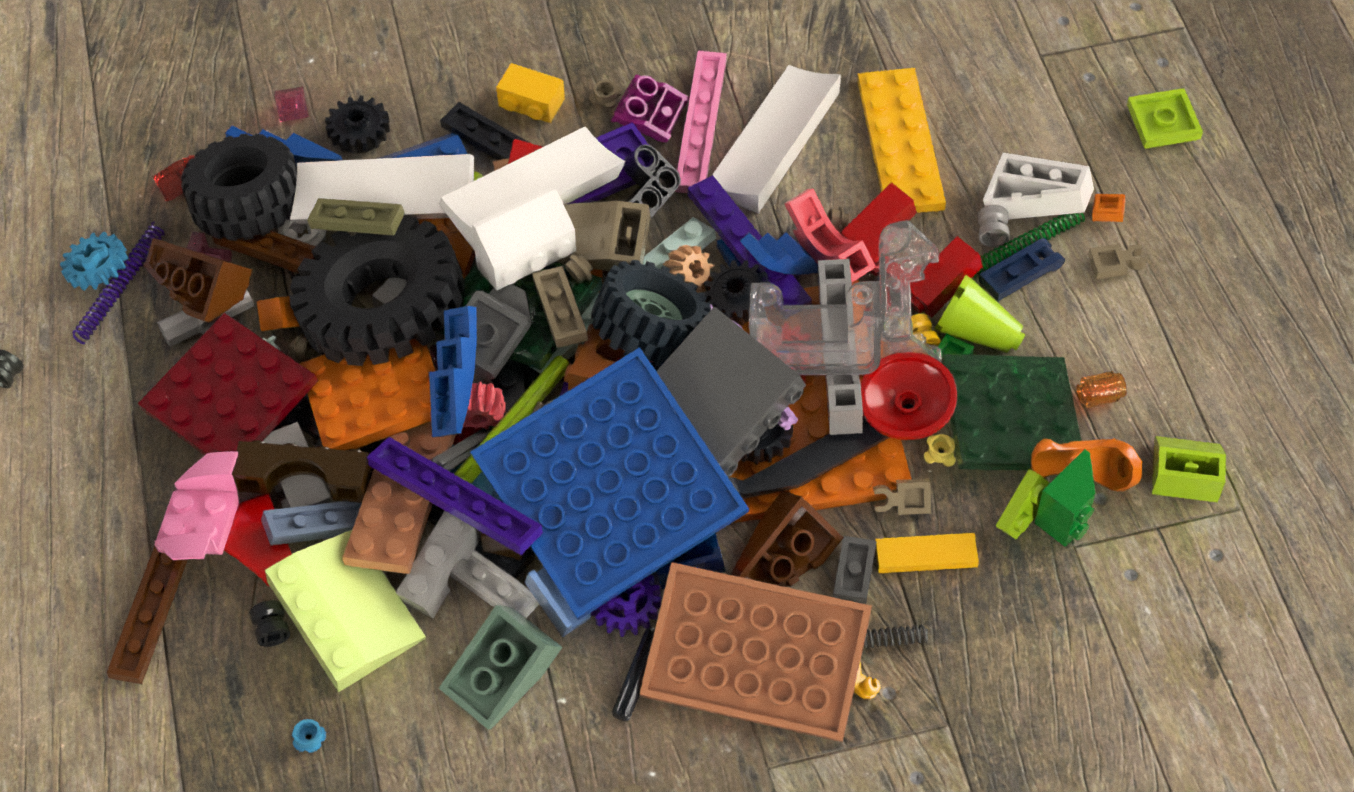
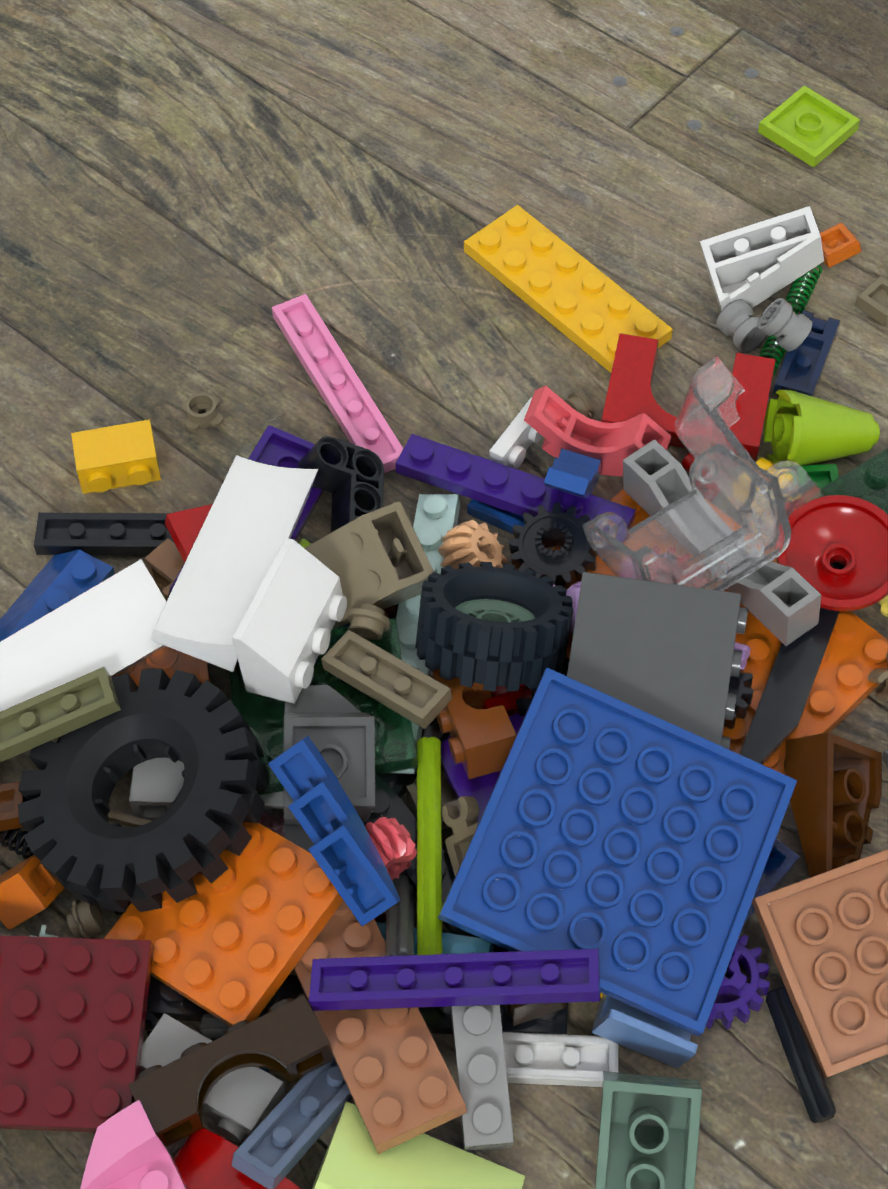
camera: 35 degrees left, 0 degrees up
(651, 107) = (266, 396): magenta slope -> none
(772, 219) = (514, 442): none -> white plate
(776, 135) = (432, 354): white arch -> none
(1012, 235) = (784, 324): none -> light grey wheel

